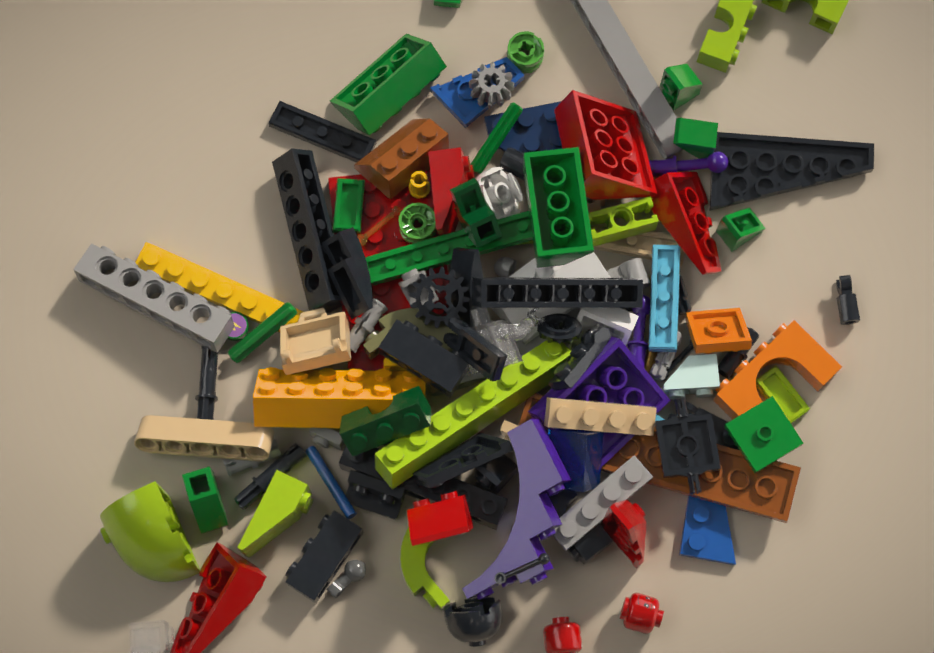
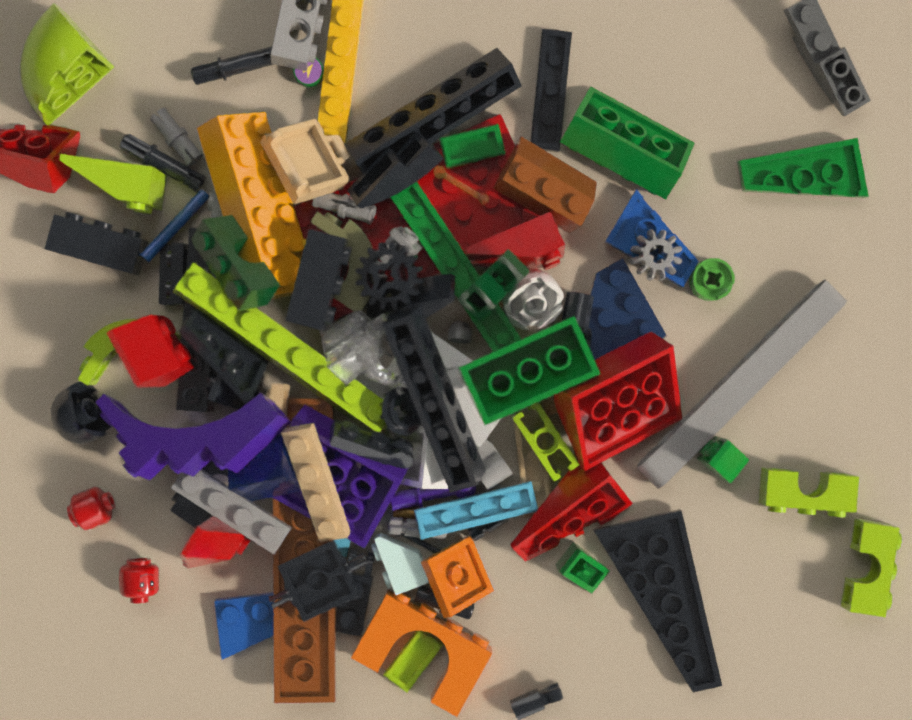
camera: 75 degrees right, 15 degrees up
(204, 438) = (175, 80): tan beam -> none
(205, 499) = (115, 104): green slope -> none
(262, 332) = (306, 102): green axle -> none
(353, 571) = (93, 279): dark grey arm -> none
(419, 186) = (510, 219): yellow pin -> none
(424, 215) = (474, 213): bright green wheel -> none
(475, 349) = (338, 331): black hinge -> none
(496, 137) = (599, 278): green axle -> none
(501, 577) = (119, 431): black hinge -> none
(696, 136) = (665, 494): green slope -> none
(716, 162) = (645, 522): dark purple pin -> none
(763, 434) = (355, 655): green plate -> none

